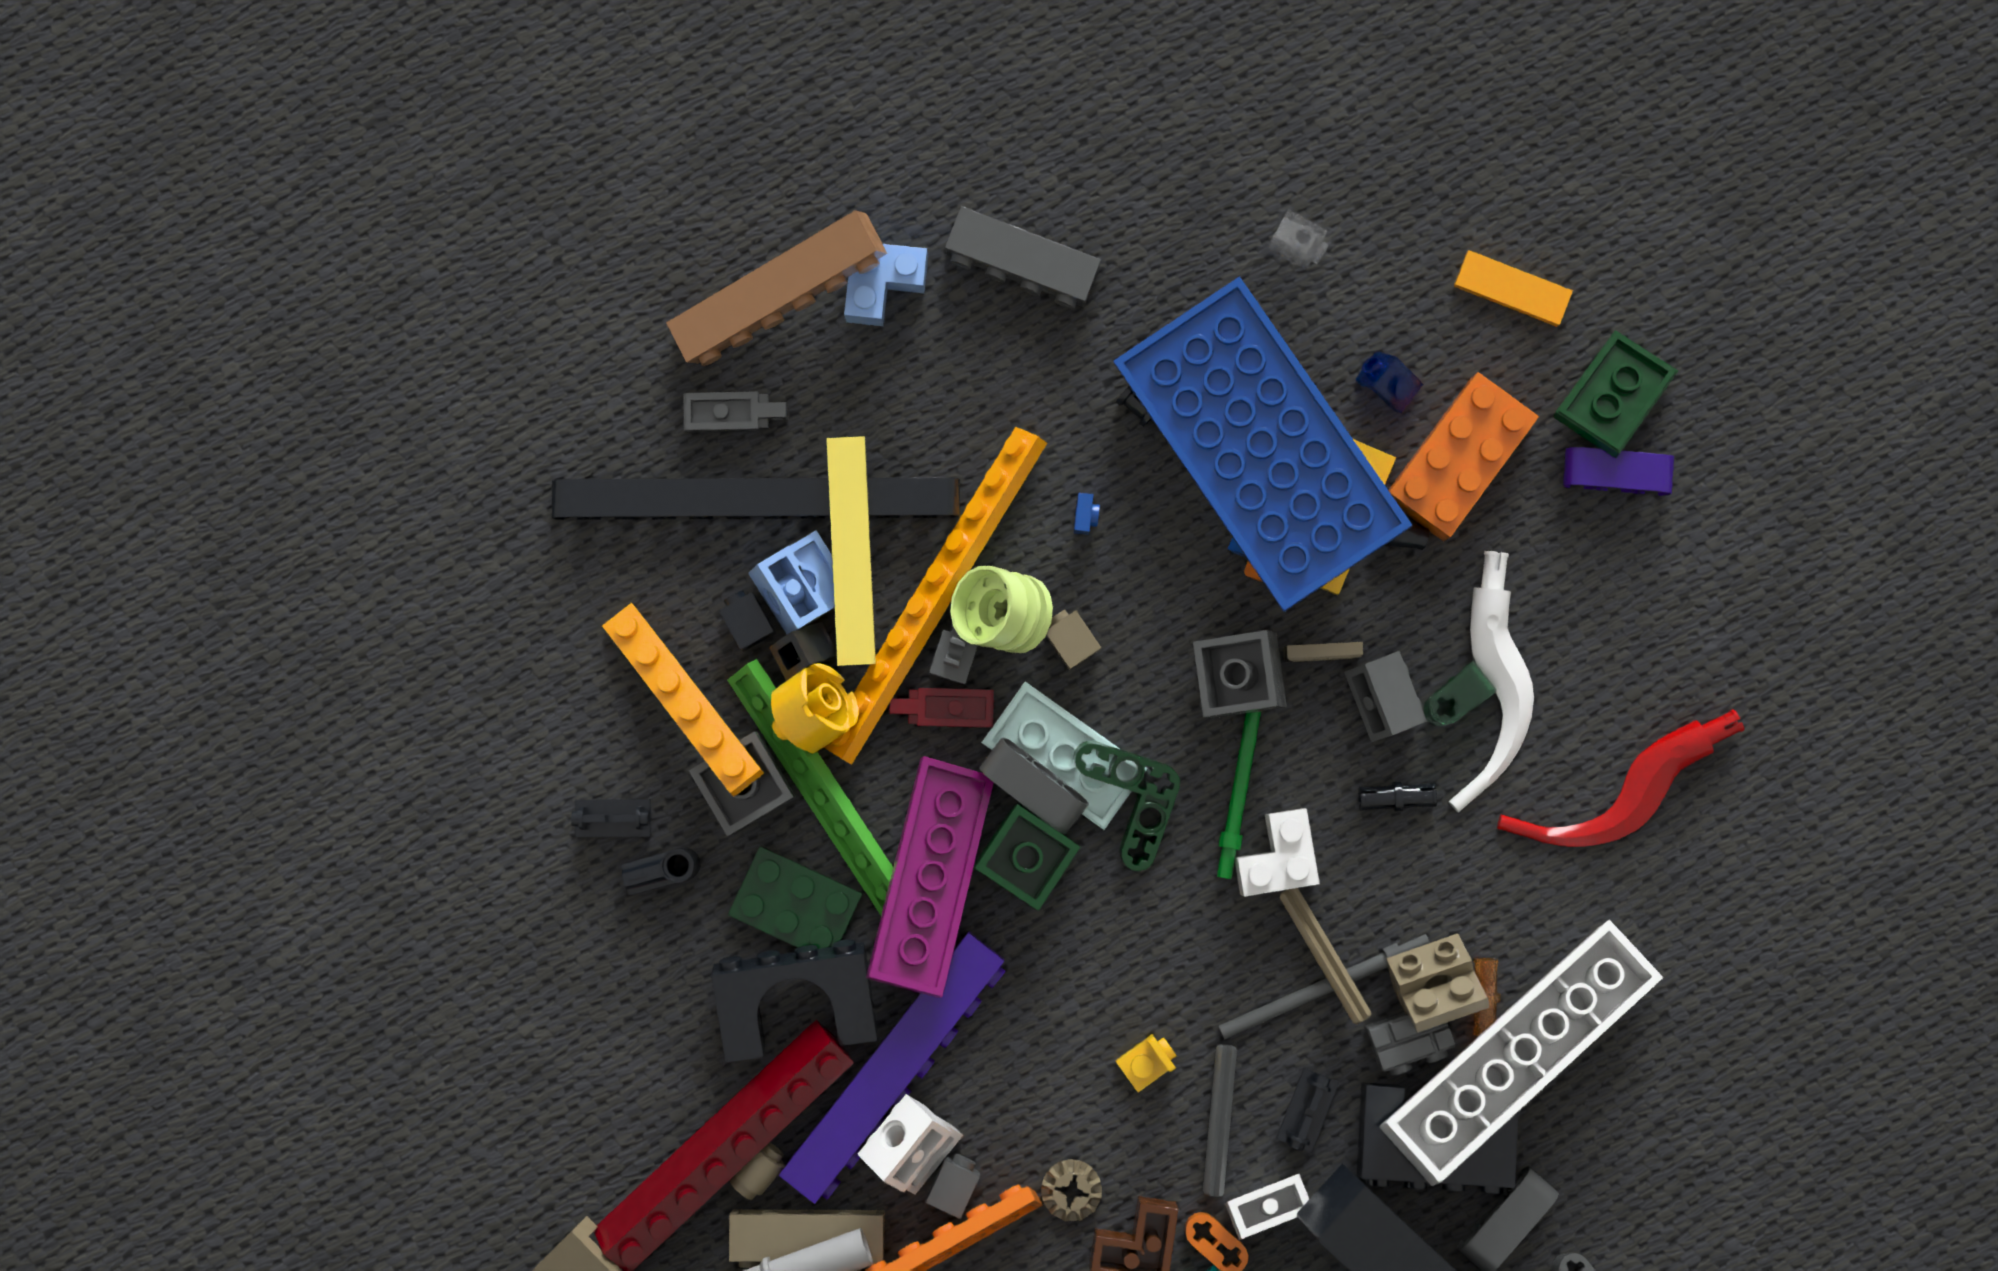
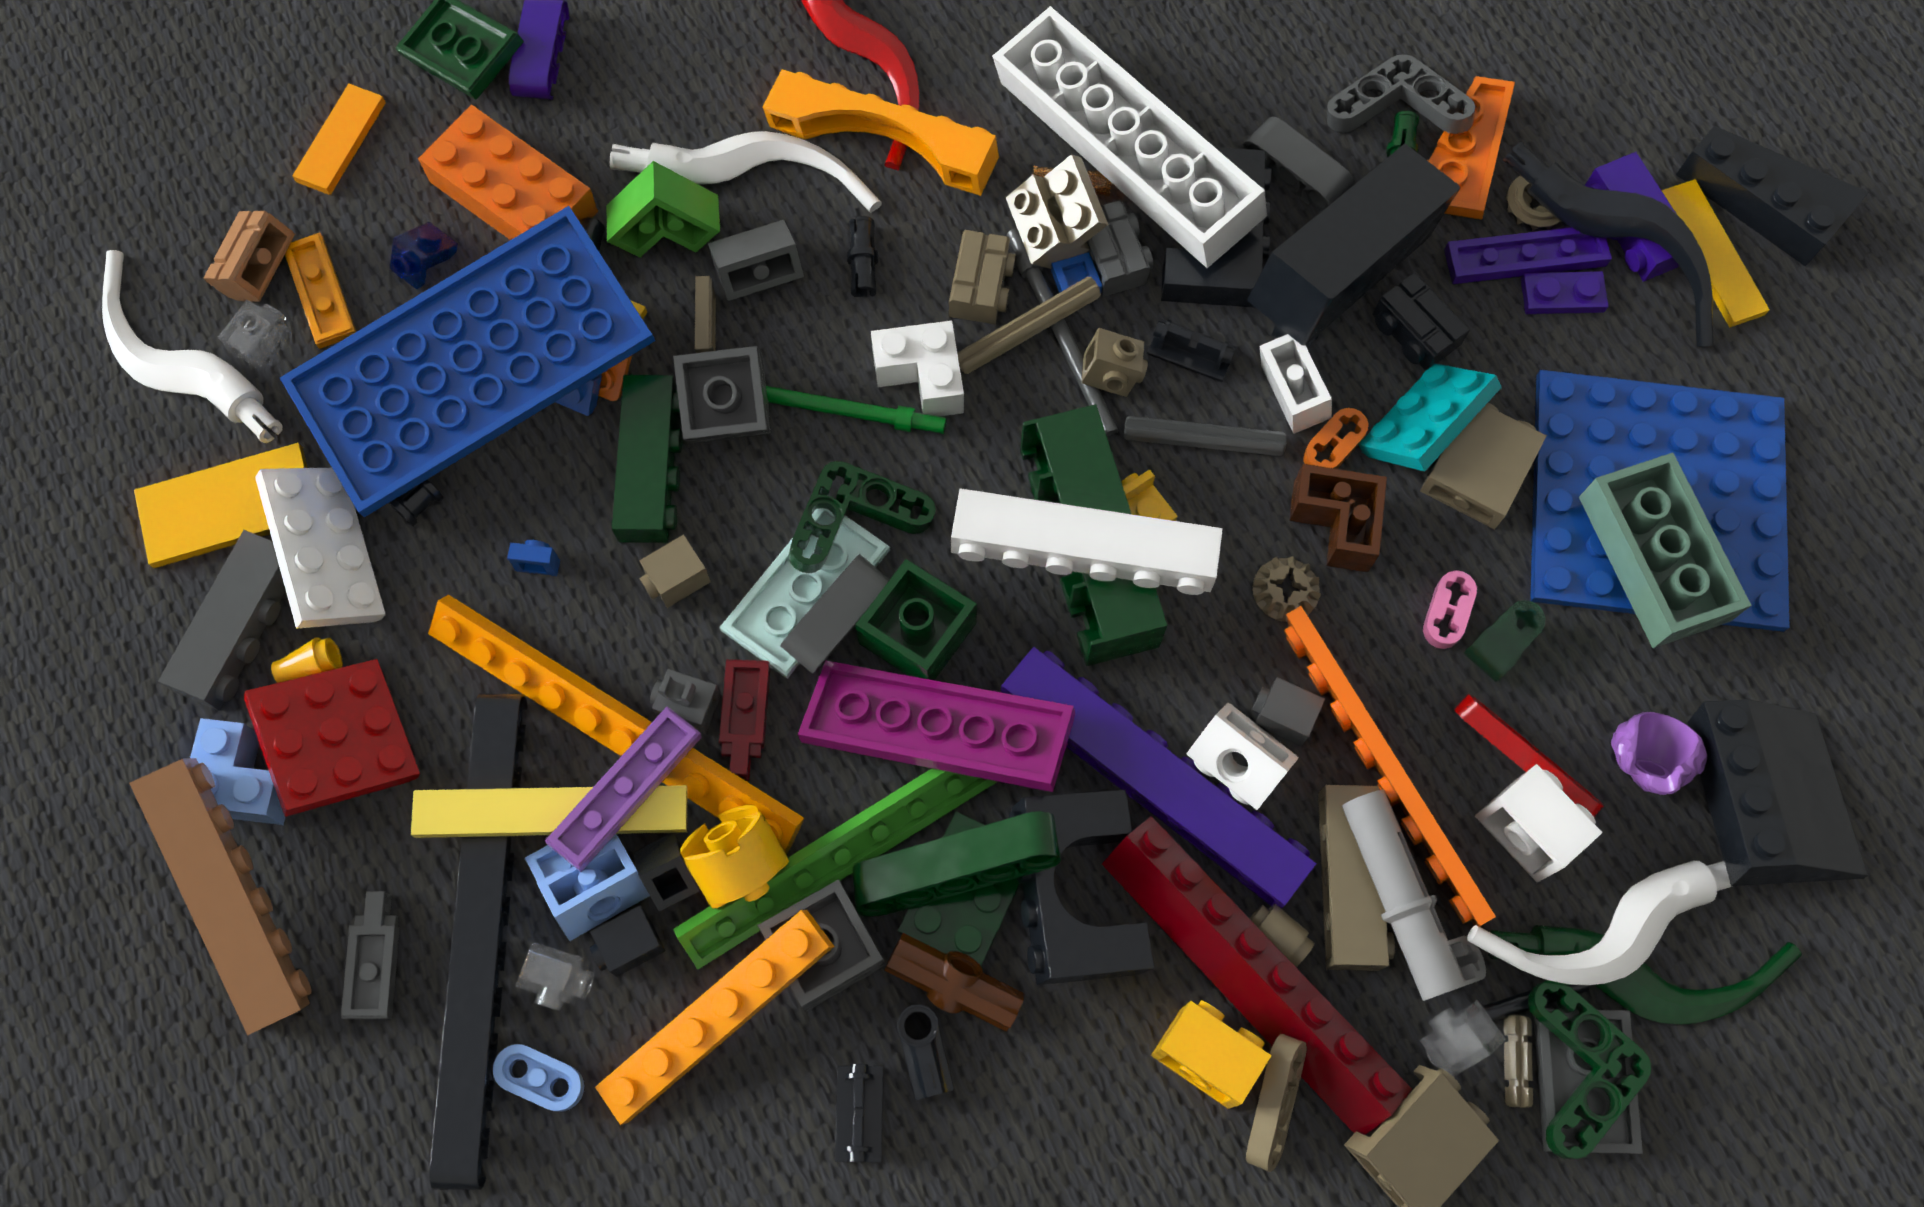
camera: 90 degrees left, 15 degrees down
(618, 1161) = (1276, 1102): none -> dark tan beam
(636, 556) = (539, 1079): none -> light blue plate
(654, 1106) = (1212, 1053): none -> yellow brick
(715, 895) = (954, 982): none -> reddish brown piece
(718, 564) = (555, 976): none -> clear brick
(806, 896) = (956, 864): none -> dark green beam
(869, 612) = (623, 789): none -> medium lavender tile
(917, 358) = (330, 736): none -> red plate
(986, 329) = (308, 659): none -> yellow cone
(1001, 609) = (620, 657): yellowish green wheel -> none
(1086, 1009) = (1086, 541): none -> white brick
(1088, 325) = (319, 547): none -> white plate
(1113, 1016) = (1080, 471): none -> dark green piece
(1133, 235) = (208, 507): none -> yellow tile
(1183, 606) = (646, 460): none -> dark green brick
(1263, 173) = (181, 370): none -> white animal
(1286, 1036) = (1113, 362): none -> dark tan brick
(1350, 289) = (319, 290): none -> light orange tile
(1375, 910) = (980, 276): none -> dark tan brick
(1377, 224) = (249, 256): none -> medium nougat brick
(1382, 1000) = (1074, 269): none -> blue plate
(1431, 604) = (660, 206): none -> bright green brick
(1462, 692) = (759, 193): clear green piece -> none
(1555, 741) = (814, 108): none -> light orange arch

